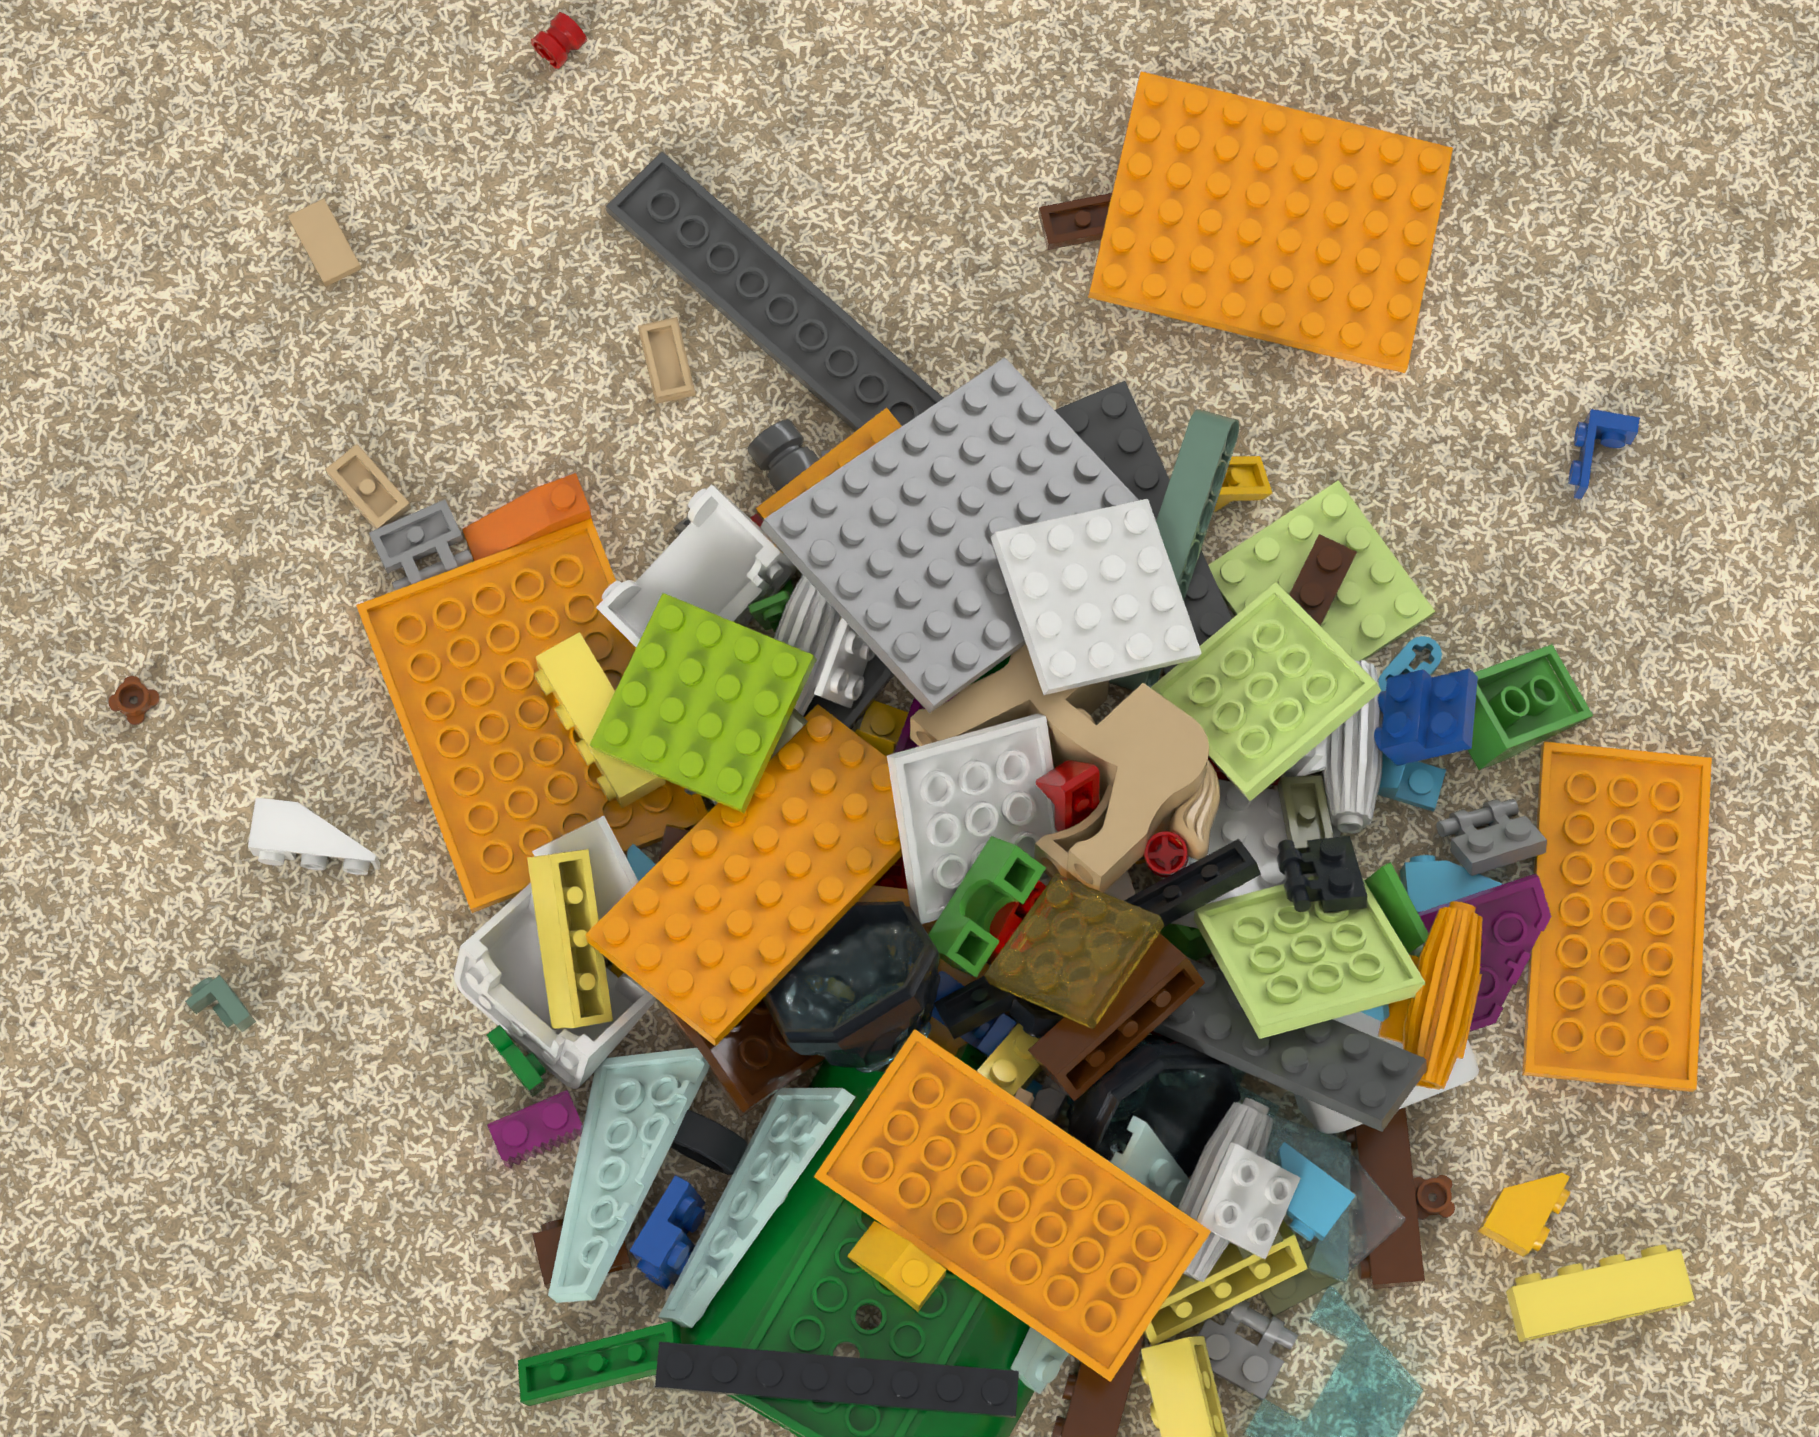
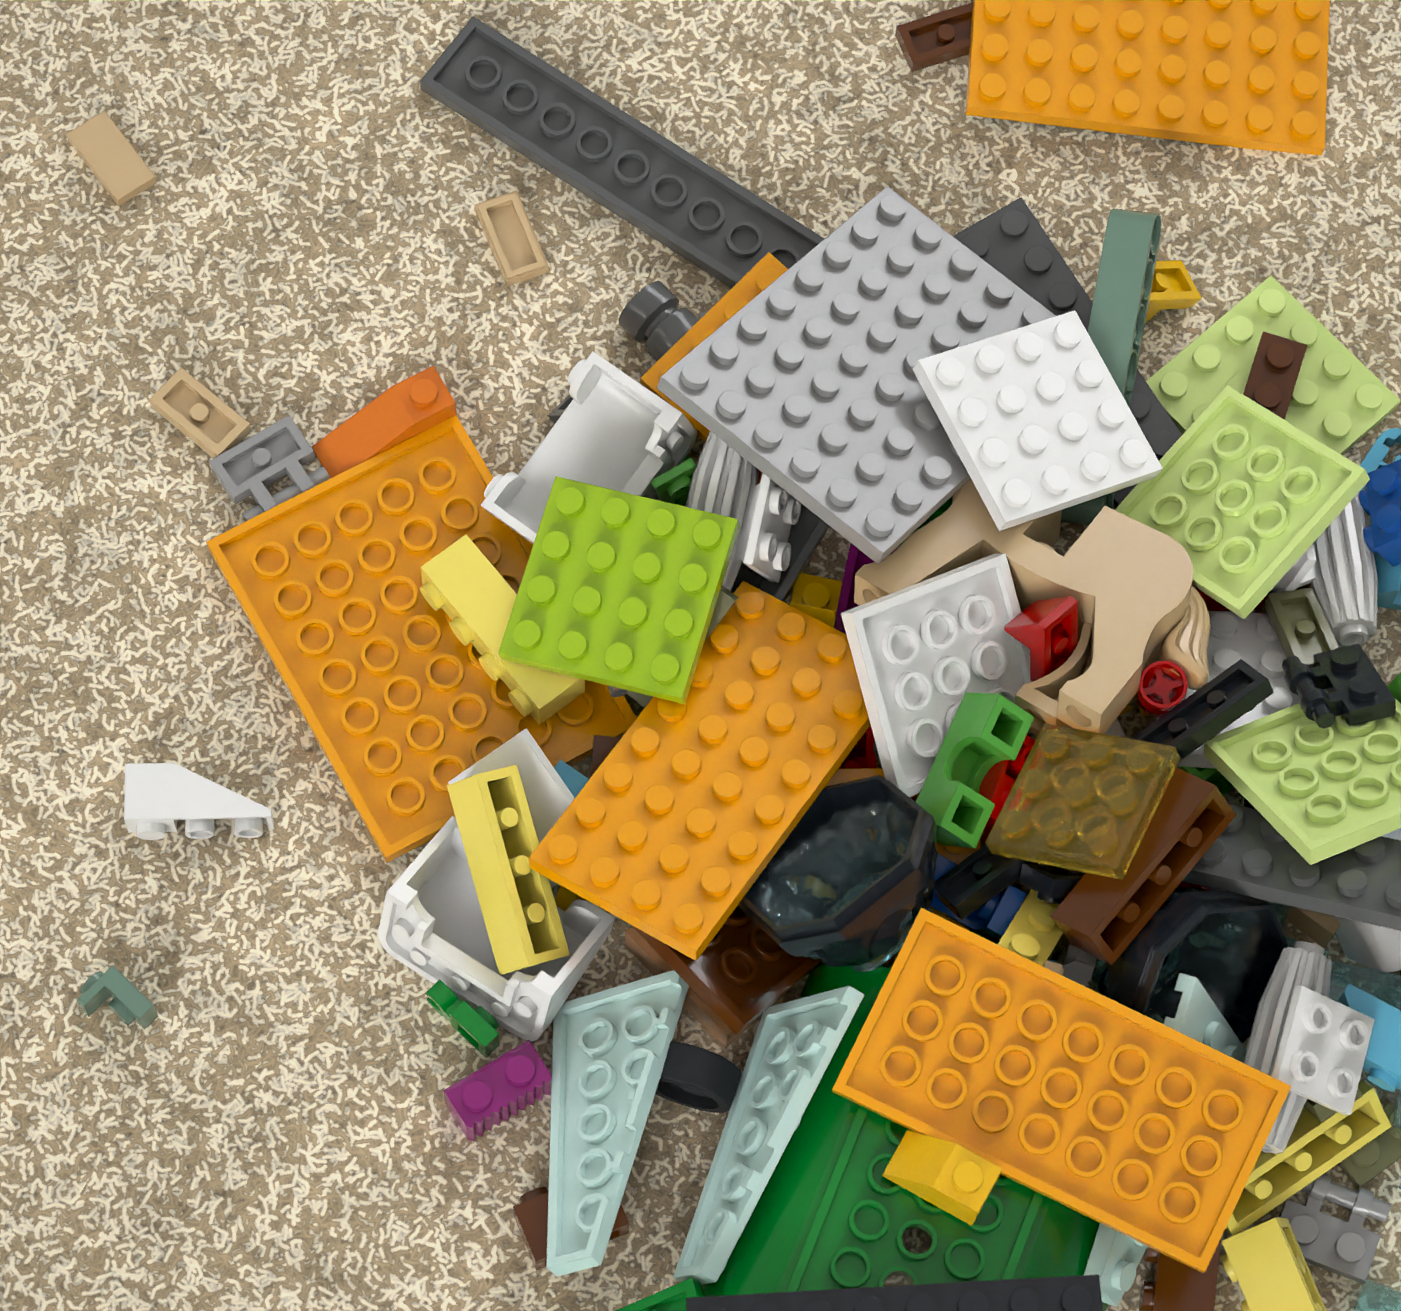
camera: 10 degrees left, 5 degrees down
(663, 1241) = (666, 1192): blue plate -> none

